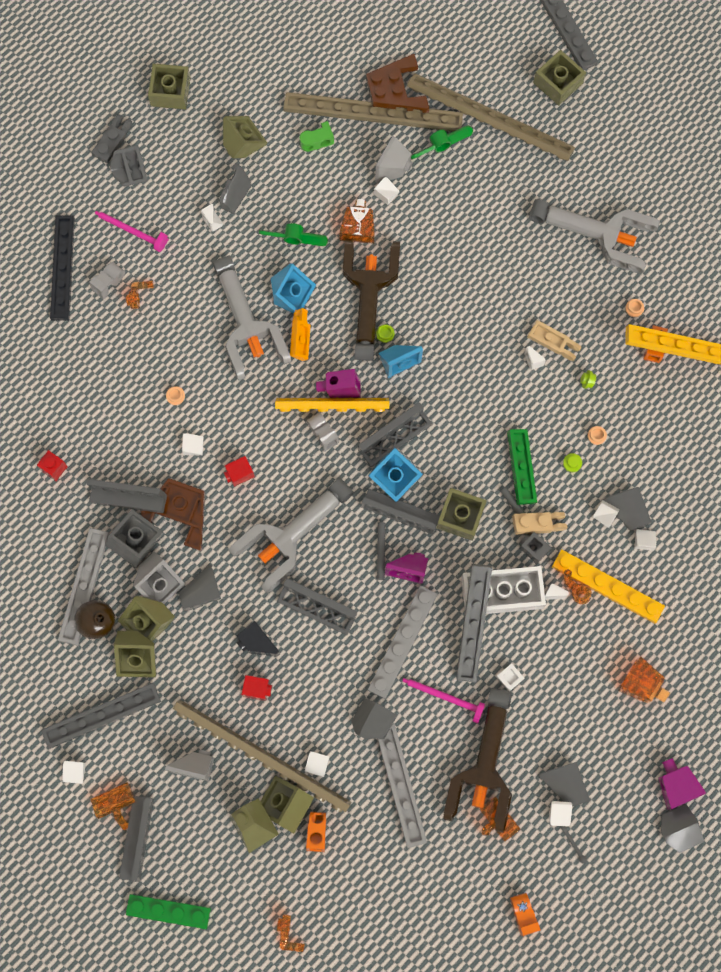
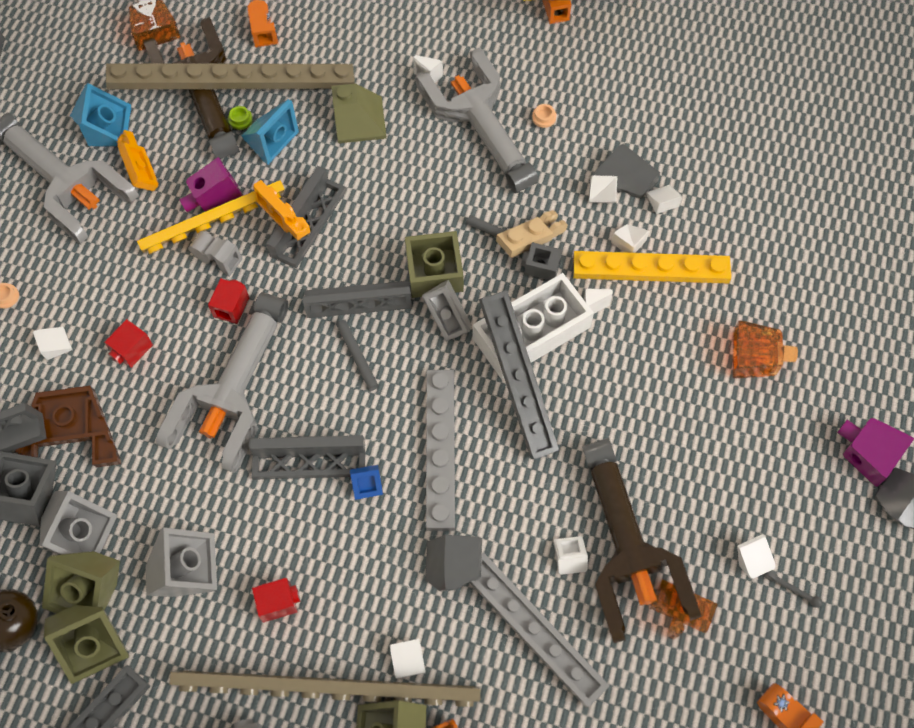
camera: 25 degrees left, 10 degrees down
(200, 590) = (141, 513): dark grey slope -> none
(210, 637) = (181, 564): none -> light grey slope
(256, 641) = (248, 539): black slope -> none
(295, 235) = (81, 64): green piece -> none
(316, 472) = (229, 300): none -> red brick
(345, 641) = (366, 482): none -> blue plate
(378, 429) = (280, 212): none -> light orange hinge
(393, 301) = (227, 76): none -> dark tan plate
(395, 474) = (329, 255): dark azure slope -> none
(408, 567) = (401, 356): magenta slope -> none
(435, 256) = (261, 28): none -> orange leg
(448, 752) = (571, 555): none -> white slope
(453, 552) = (447, 311): none -> light grey slope
(467, 371) = (358, 114): none -> olive slope
(478, 709) = (580, 482): dark pink piece -> none
(510, 677) = (597, 423): white plate -> none
(522, 466) = (477, 184): green plate -> none
(551, 406) = (476, 107): none -> light grey piece
(553, 340) = (440, 43): tan hinge -> none
(567, 783) = (741, 516): dark grey slope -> none
(572, 462) = (534, 154): lime plate -> none
(577, 589) = (619, 285): clear orange plate -> none
(588, 379) = (502, 64): lime plate -> none
(604, 558) = (629, 238): none -> white slope

